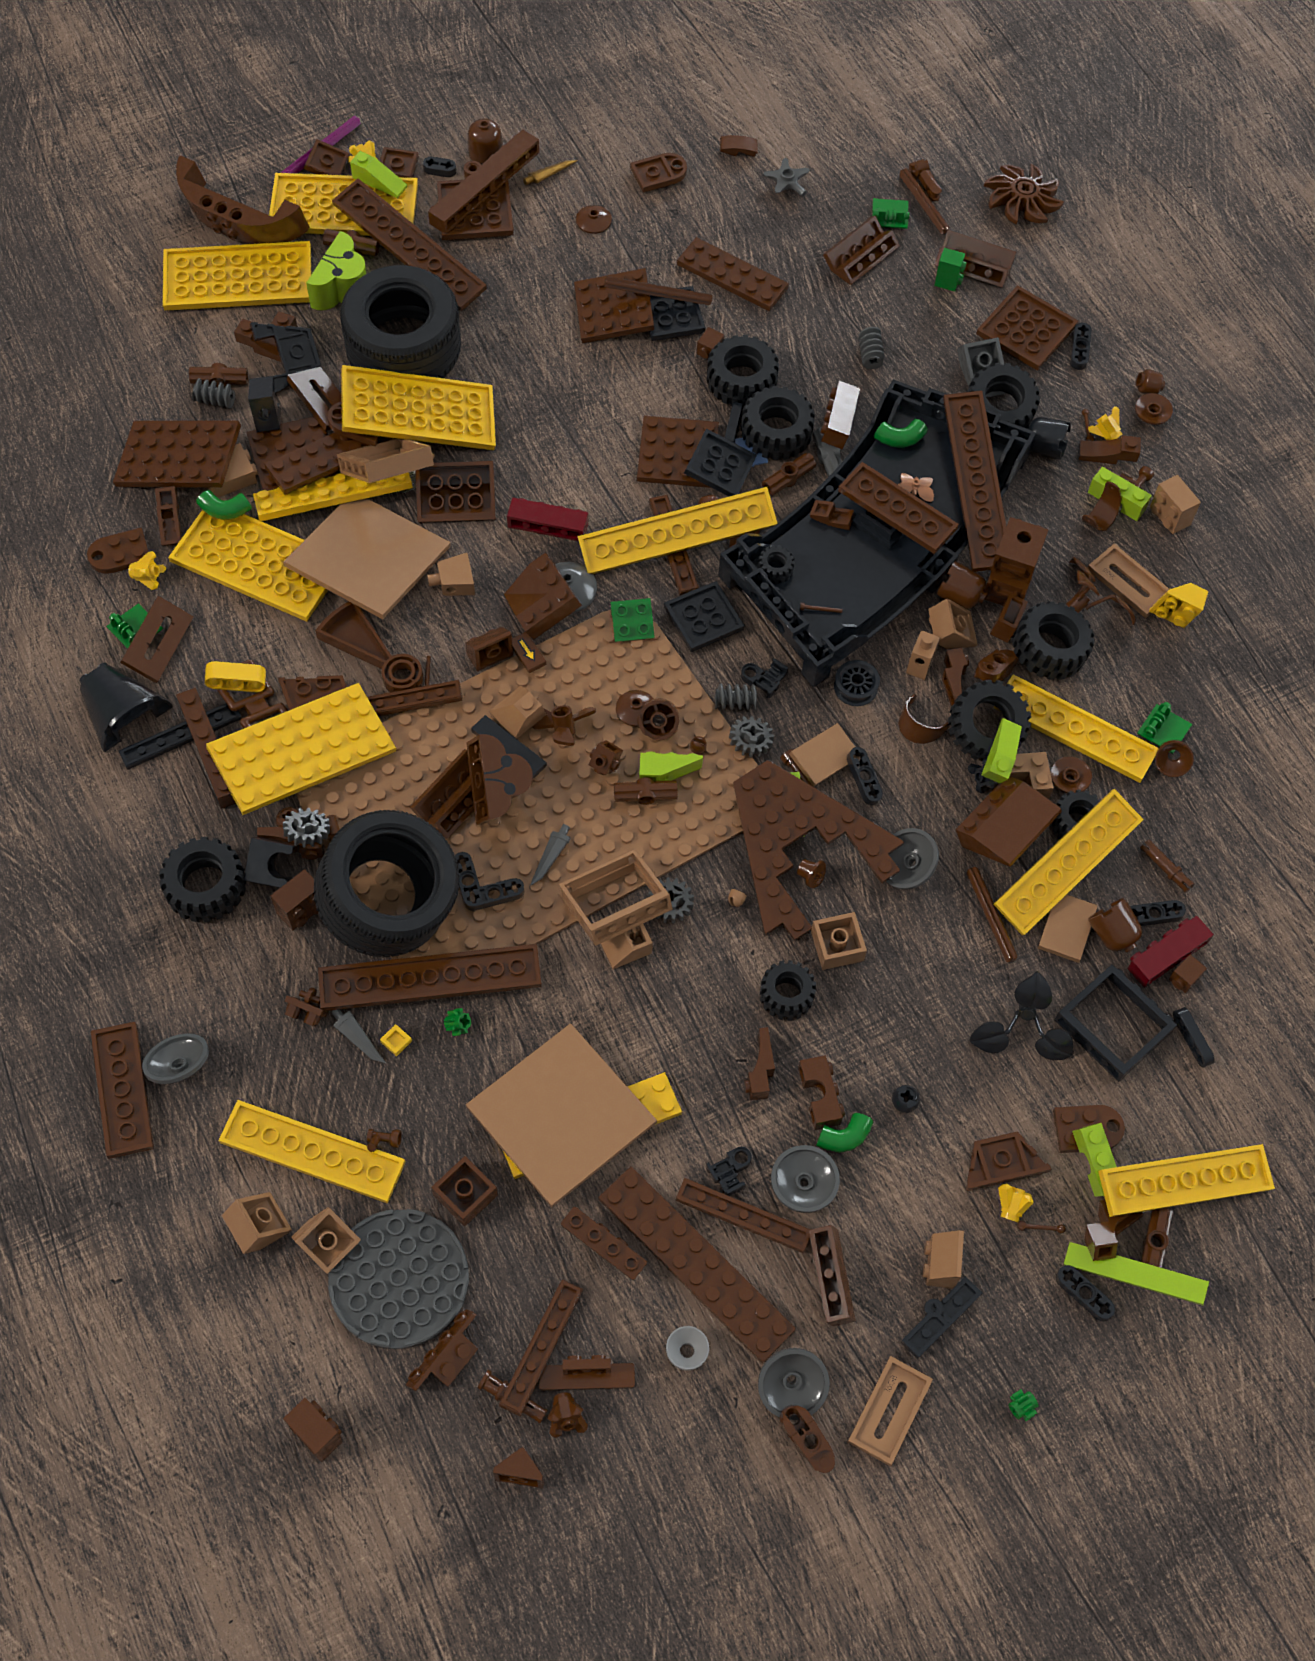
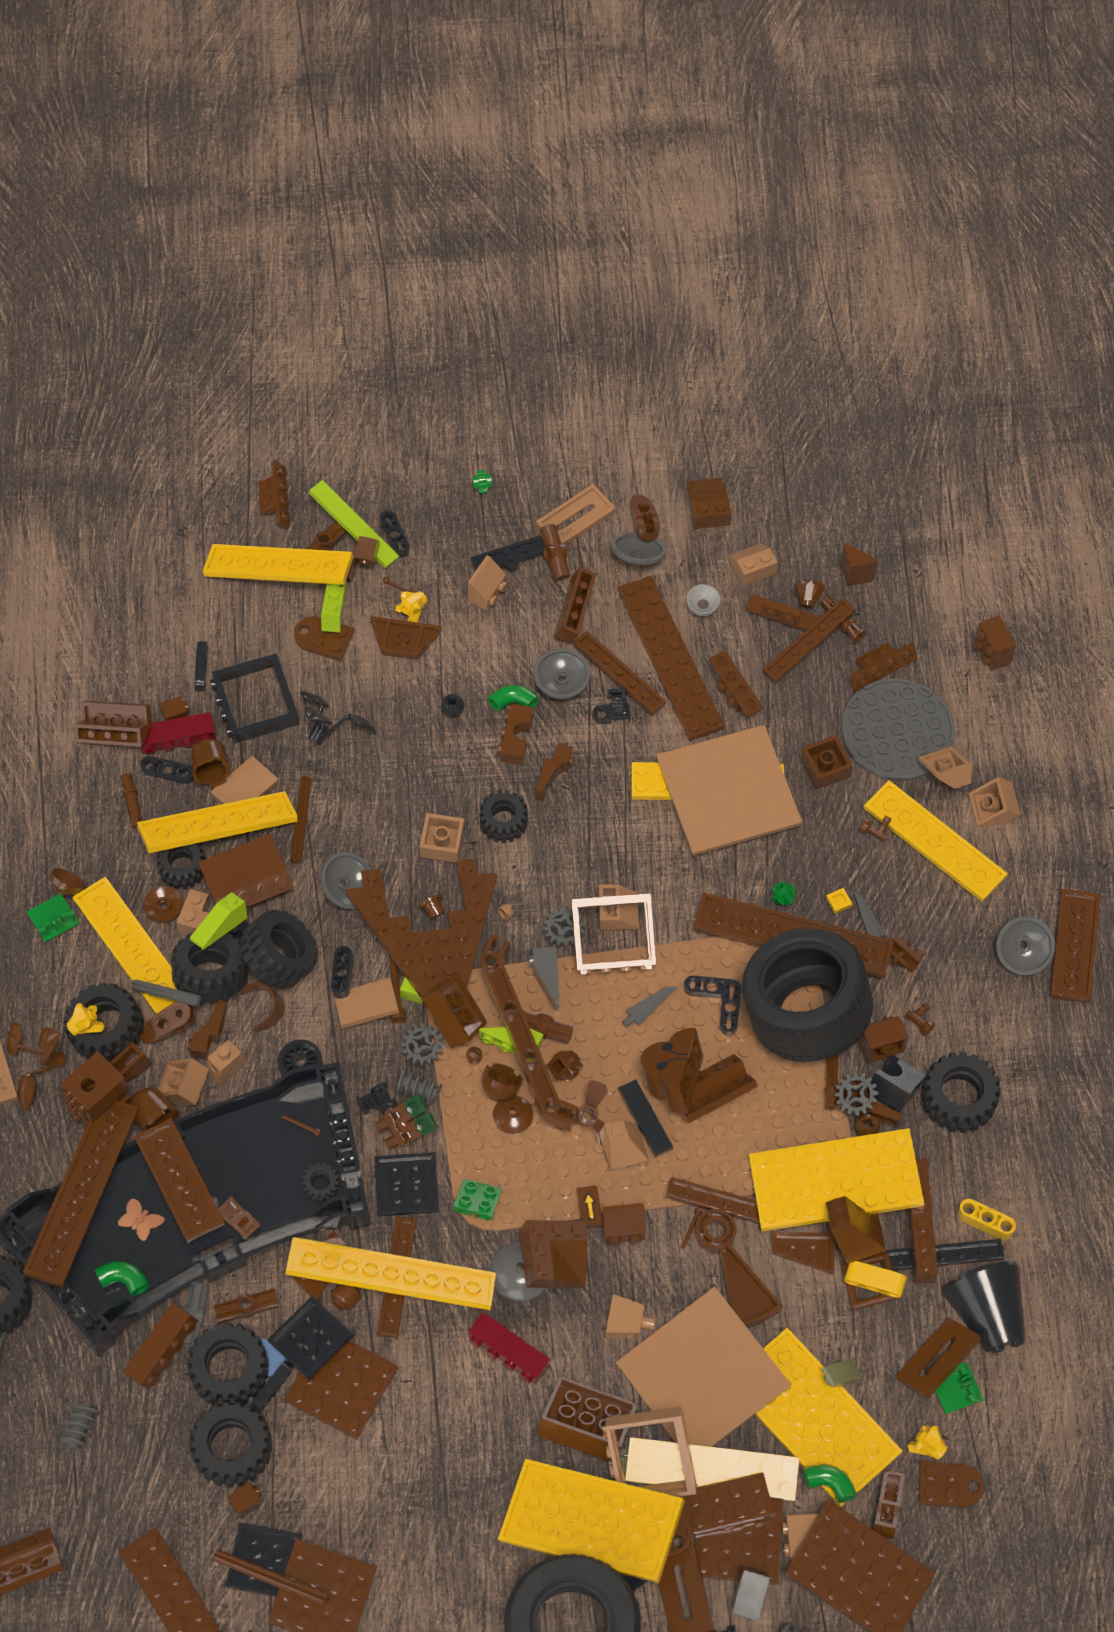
camera: 155 degrees left, 0 degrees up
(136, 770) = (992, 1228): none -> yellow beam
(241, 593) = (841, 1373): none -> olive slope
(266, 698) = (854, 1229): none -> reddish brown slope
(274, 948) = (915, 1016): none -> reddish brown piece
(651, 1432) = (753, 564): none -> medium nougat slope
(657, 756) = (522, 1037): none -> reddish brown piece
(665, 842) = (546, 972): none -> dark grey slope
(727, 659) = (401, 1125): none -> reddish brown hips
(734, 761) = (454, 1010): none -> reddish brown slope
(740, 1501) = (709, 503): none -> reddish brown slope
(889, 1338) = (555, 552): none -> reddish brown piece
(907, 753) = (267, 961): none -> black tyre
(1016, 681) = (166, 992): none -> dark grey axle
(1066, 614) = (84, 1020): none -> yellow rock
(1237, 927) = (113, 723): none -> reddish brown slope
(1246, 1284) = (274, 495): none -> reddish brown bracket

